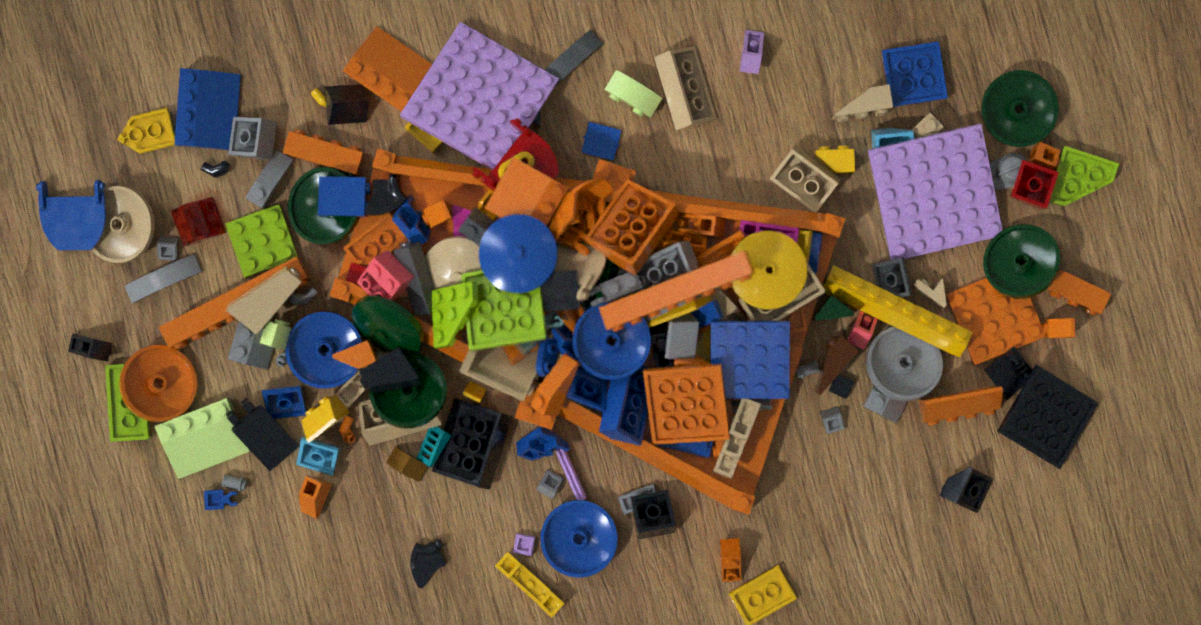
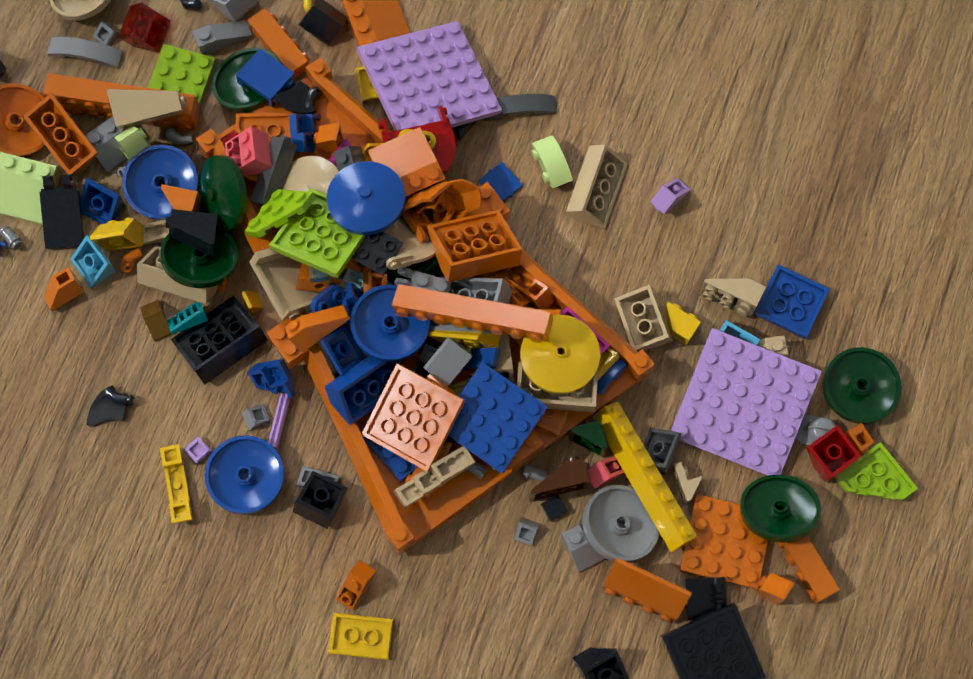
camera: 30 degrees right, 15 degrees down
(210, 371) = (61, 135): none -> orange slope

